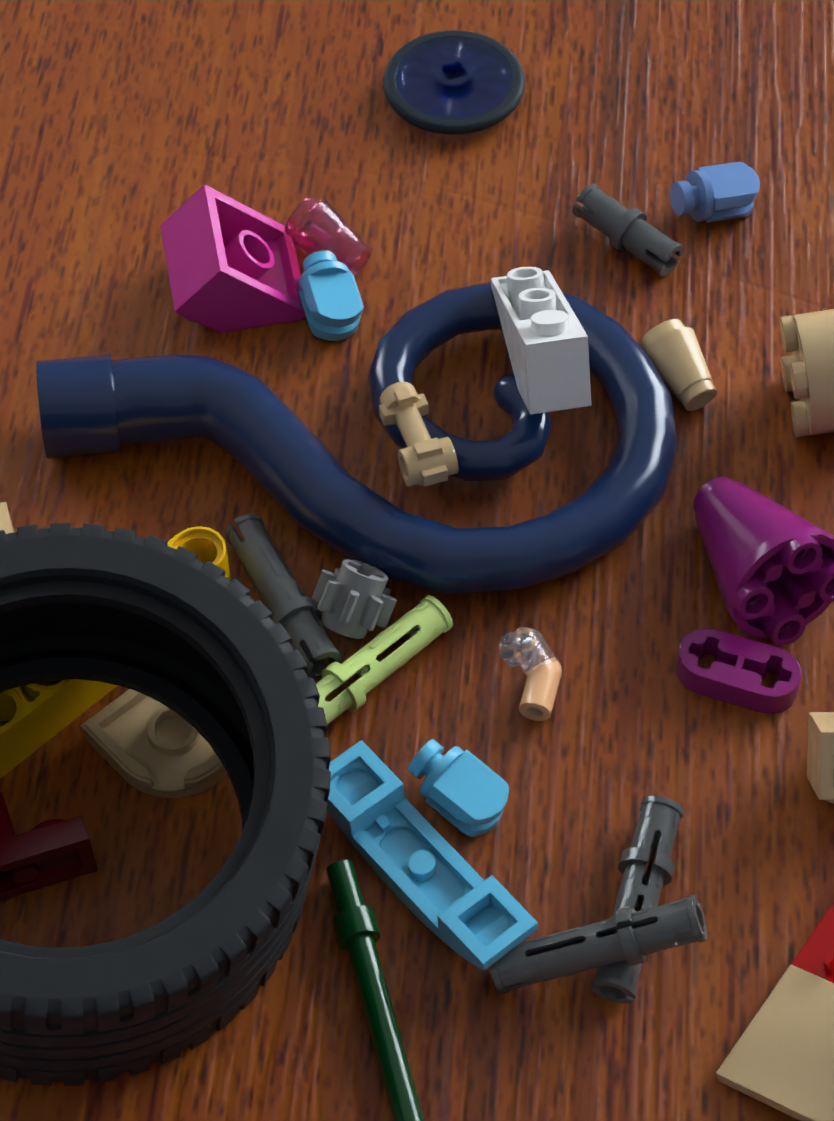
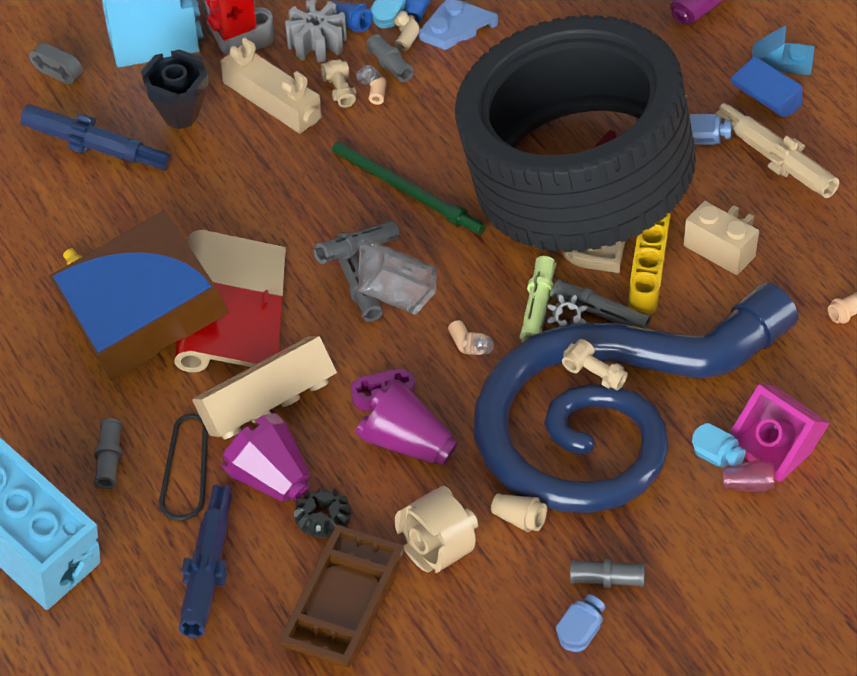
camera: 145 degrees right, 5 degrees down
(419, 865) = (450, 248): medium azure slope -> none
(453, 82) = (781, 637): clear blue wheel -> none
(460, 788) = (459, 277): medium azure arm -> none
(543, 341) = (583, 444): white slope -> none
(579, 822) = (395, 277): none -> clear slope

